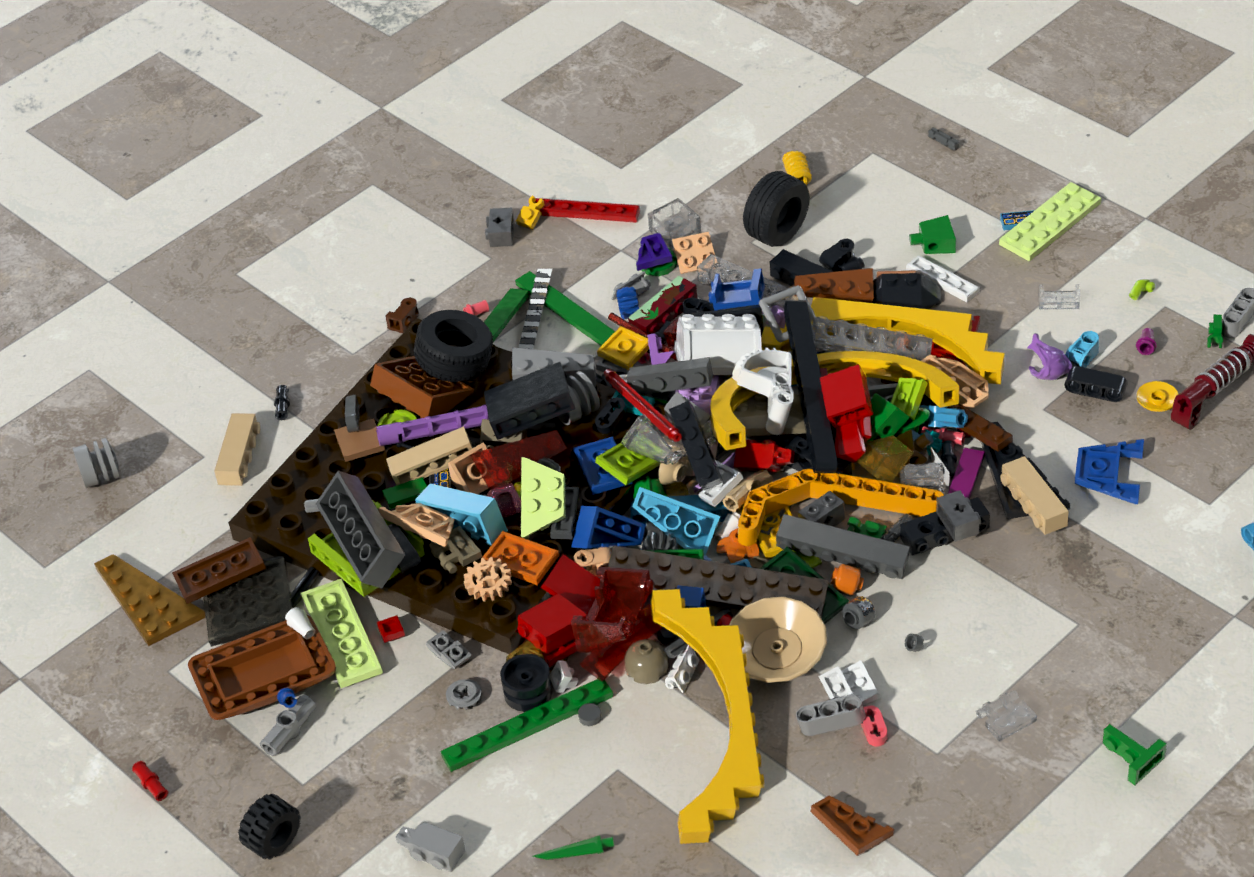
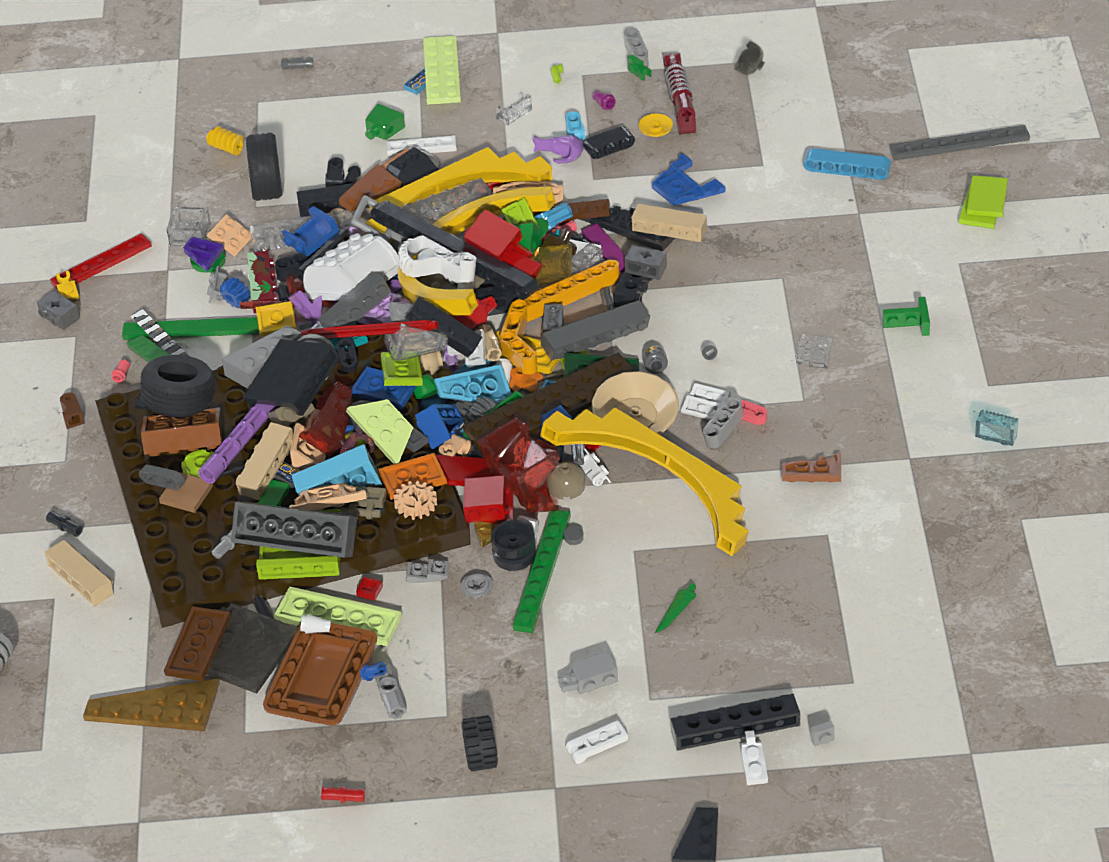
camera: 50 degrees left, 0 degrees up
(847, 579) = (623, 345): orange head -> none
(869, 528) = (588, 312): green plate -> none

